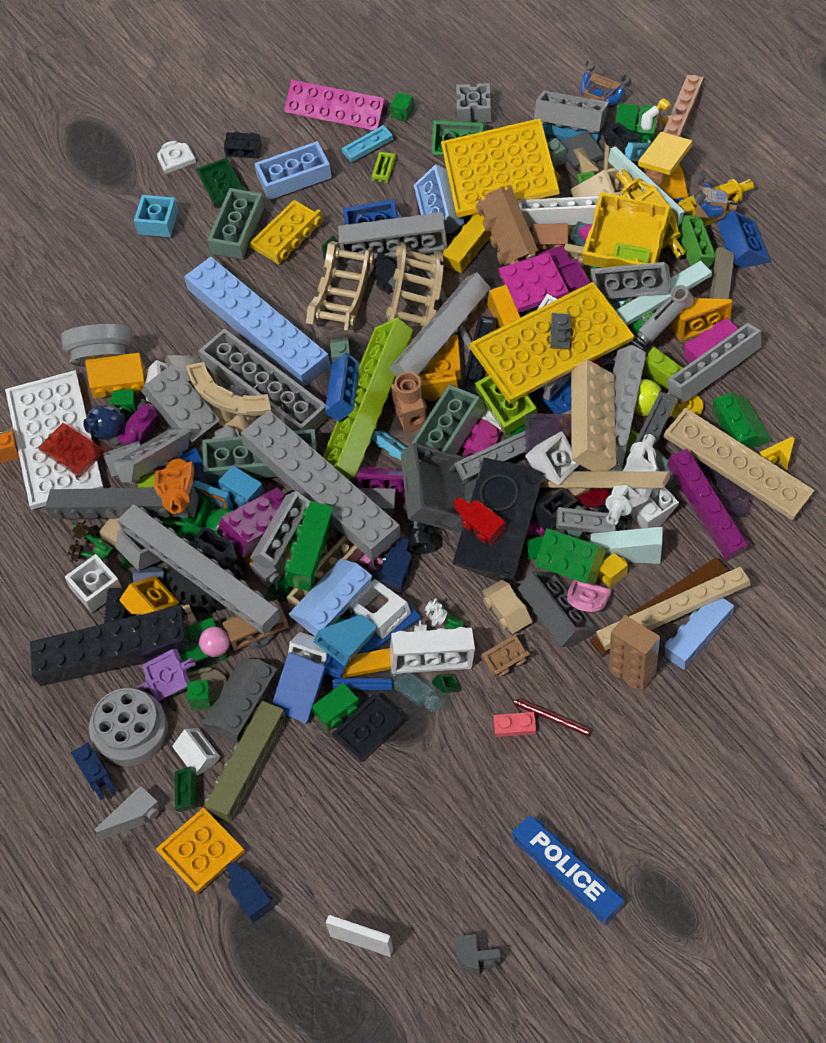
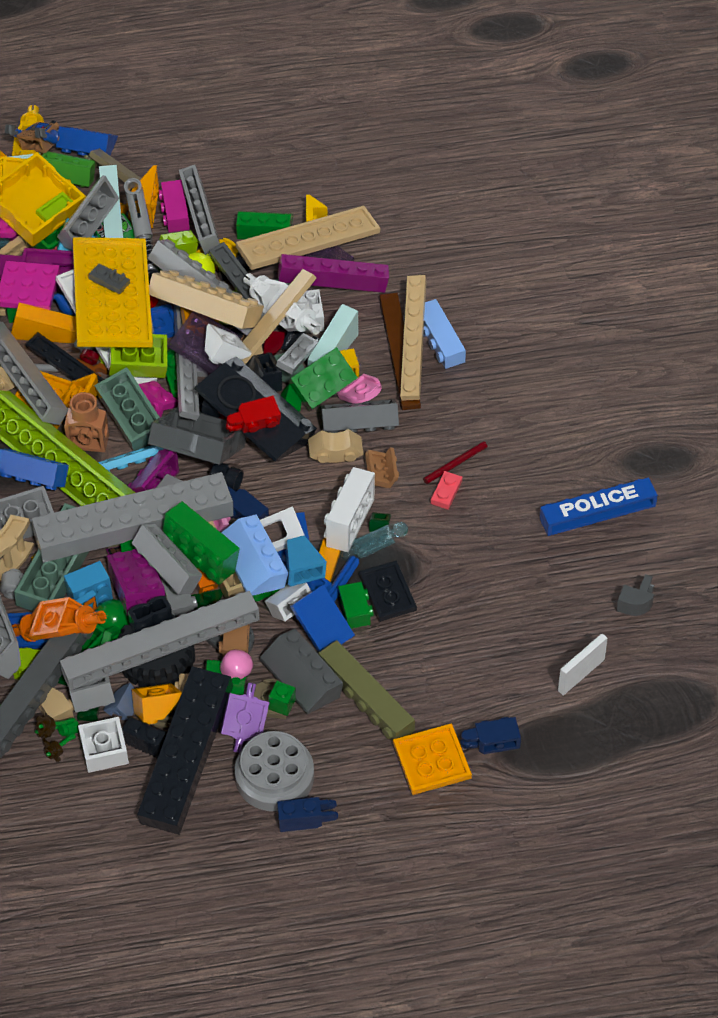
camera: 70 degrees left, 5 degrees down
(133, 812) = (363, 792): light grey slope -> none
(185, 789) = (365, 748): dark green plate -> none
(196, 750) = (332, 728): white brick -> none
(438, 616) = (322, 490): white plant -> none
(633, 653) = (446, 371): medium nougat brick -> none

